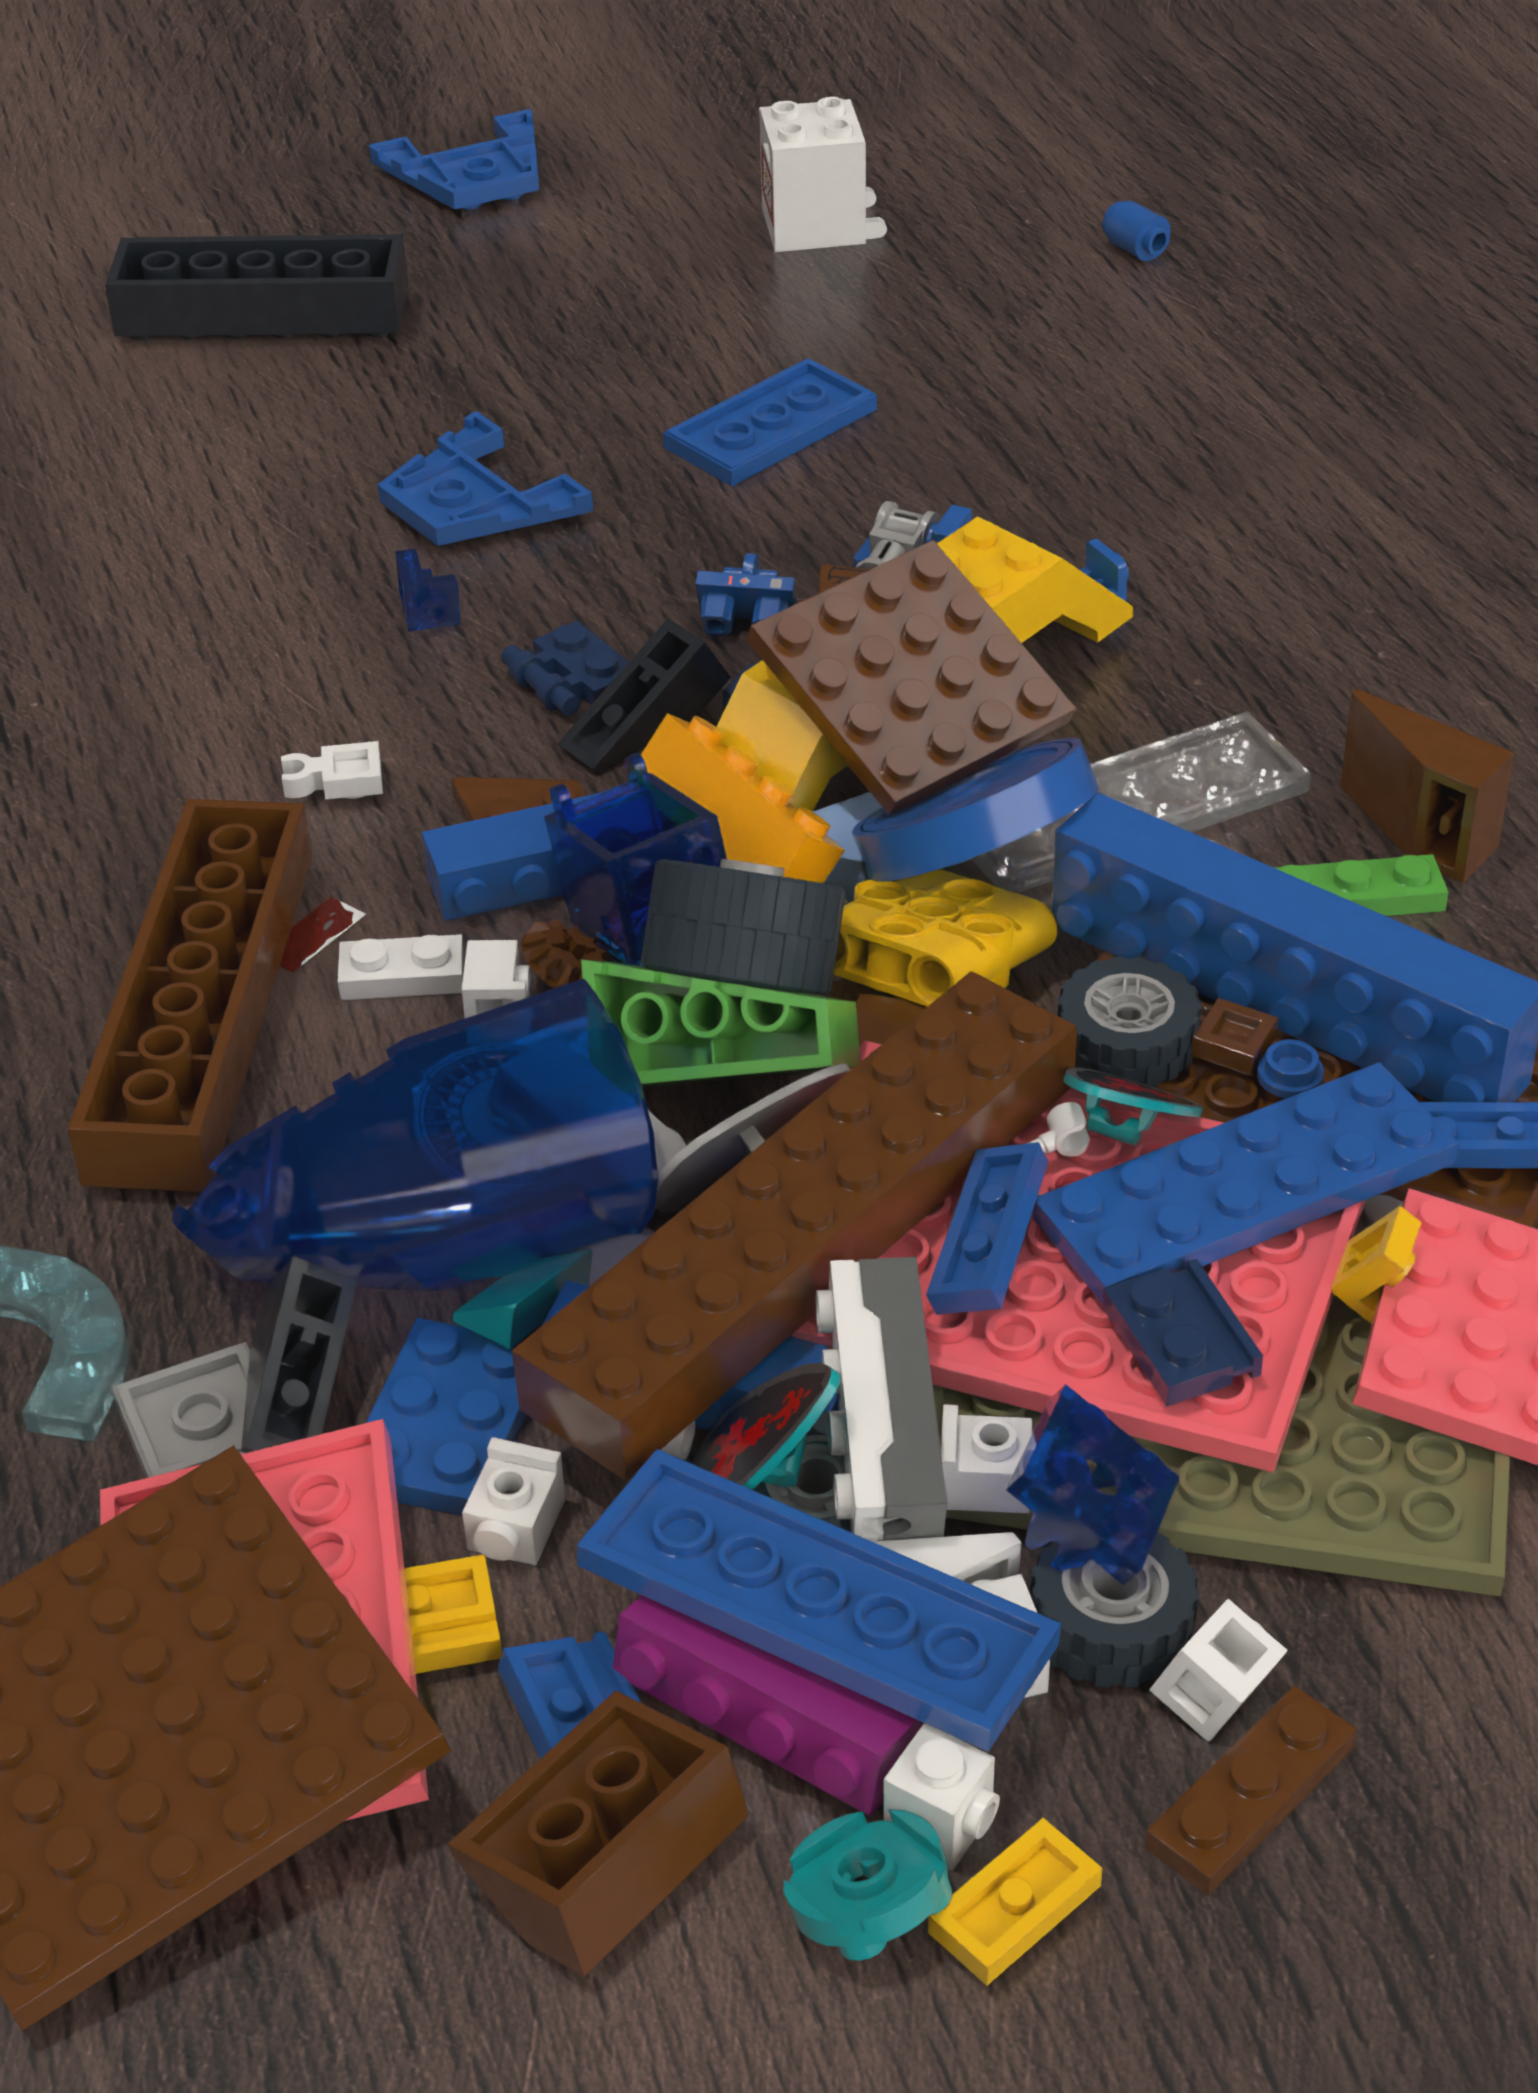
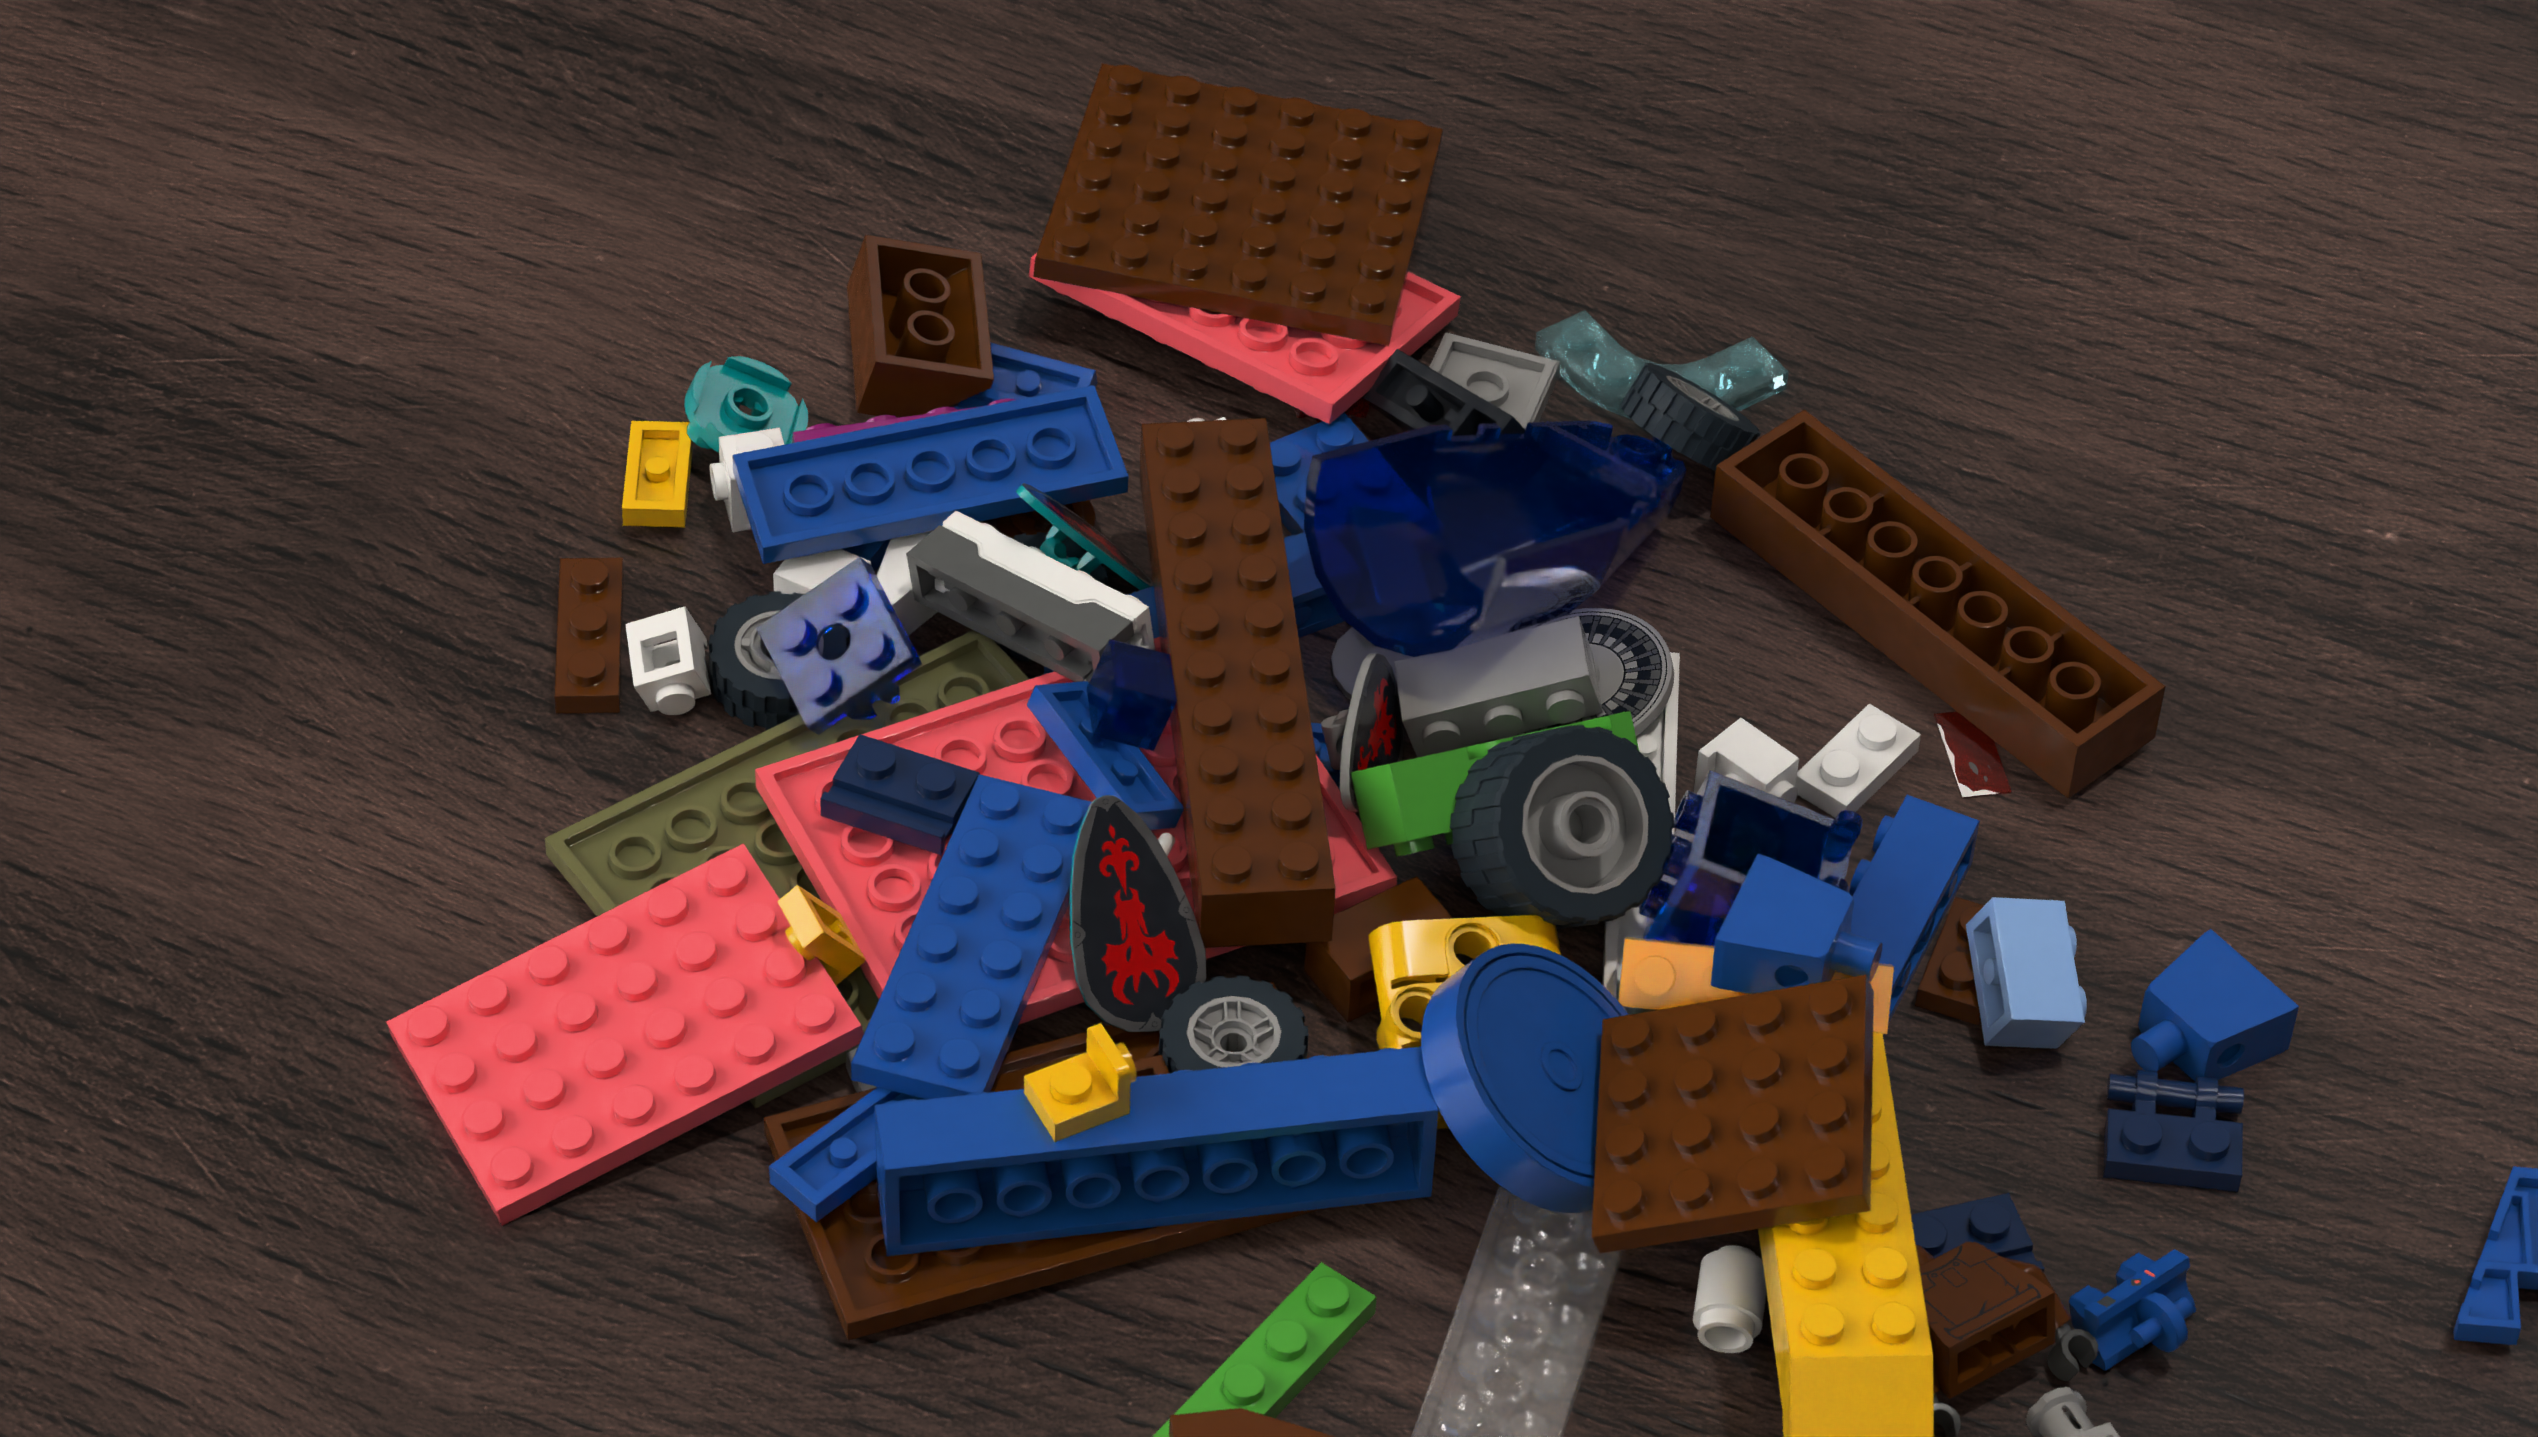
camera: 130 degrees right, 5 degrees up
(137, 1211) = (1687, 416): none -> black wheel
(341, 772) = (2168, 877): white plate -> none
(425, 599) = (2411, 1087): clear blue bracket -> none
(452, 1614) = (1170, 386): yellow plate -> none
(457, 690) = (2212, 1014): none -> blue torso
(538, 749) = (2025, 973): none -> light blue brick
(667, 675) = (2042, 1126): black slope -> none
(728, 736) = (1788, 933): none -> blue torso
(928, 1218) = (1131, 695): none -> clear blue brick
(980, 1460) = (950, 645): white brick -> none
(1346, 927) = (1084, 1087): none -> yellow bracket

